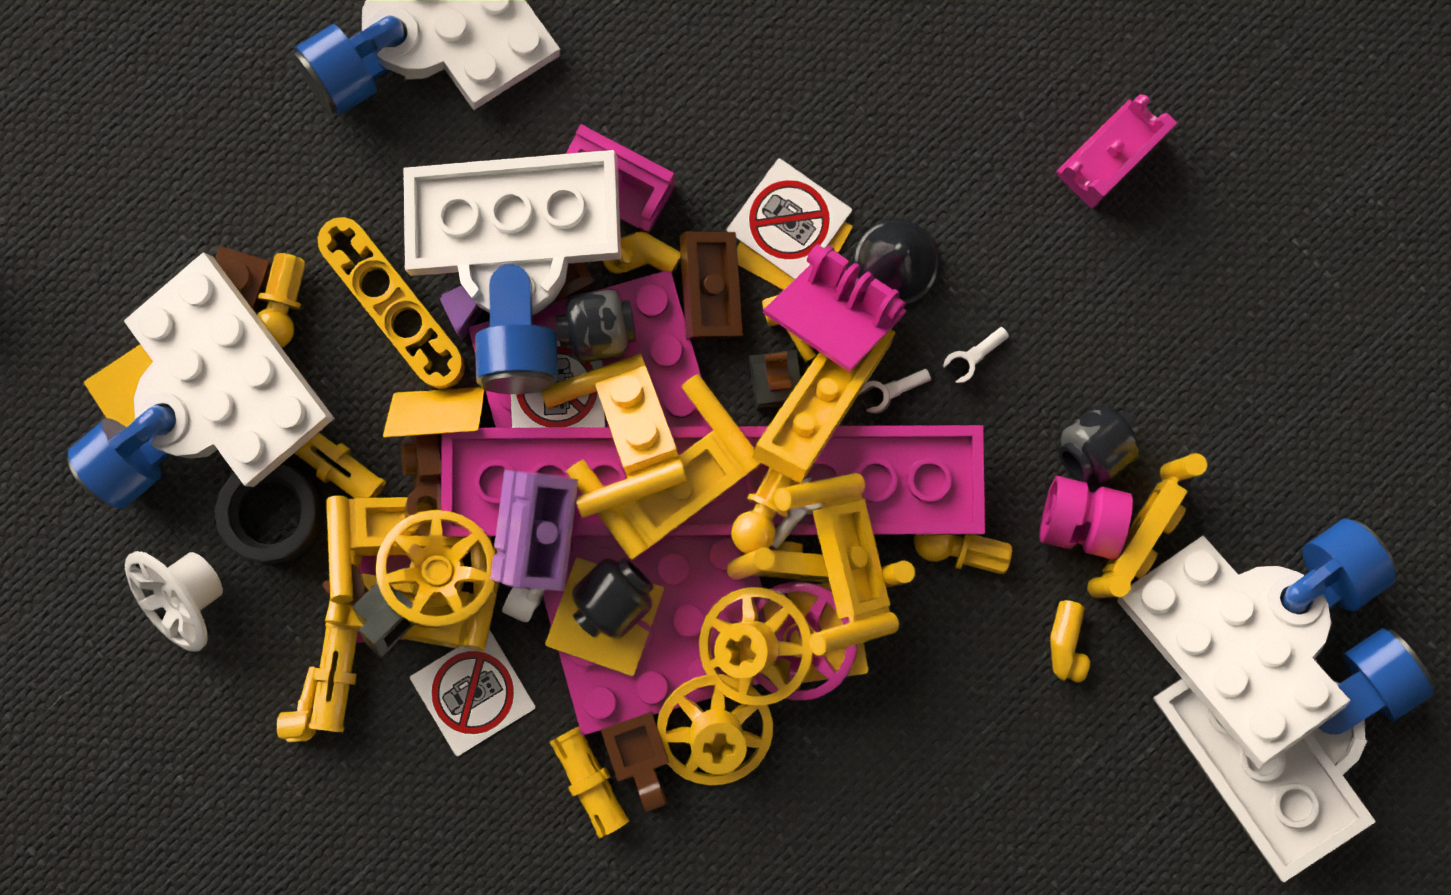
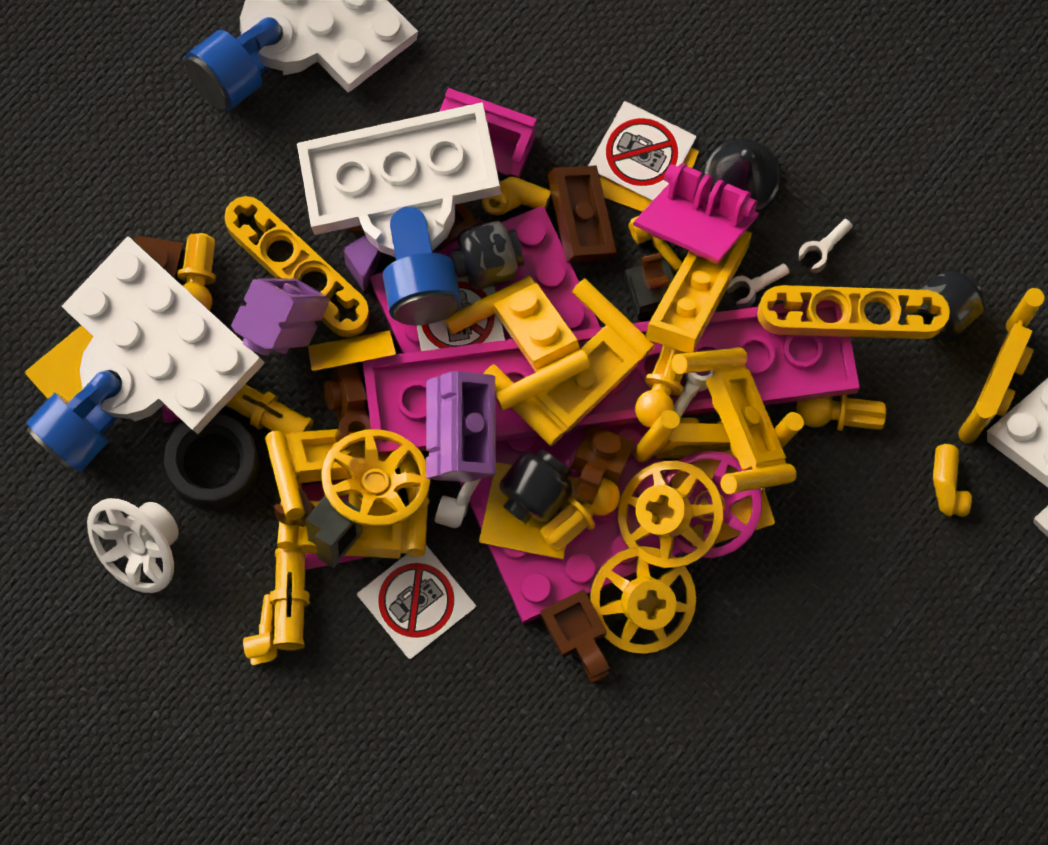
camera: 10 degrees left, 10 degrees down
(357, 365) = (279, 315): none -> medium lavender brick
(589, 782) = (535, 662): yellow pin -> none
(679, 617) = (578, 516): none -> yellow axle
(687, 576) = (599, 457): none -> reddish brown plate
(991, 443) = (852, 304): none -> yellow beam
(1084, 517) = (963, 367): dark pink wheel -> none
(1114, 150) = (920, 57): dark pink hinge -> none

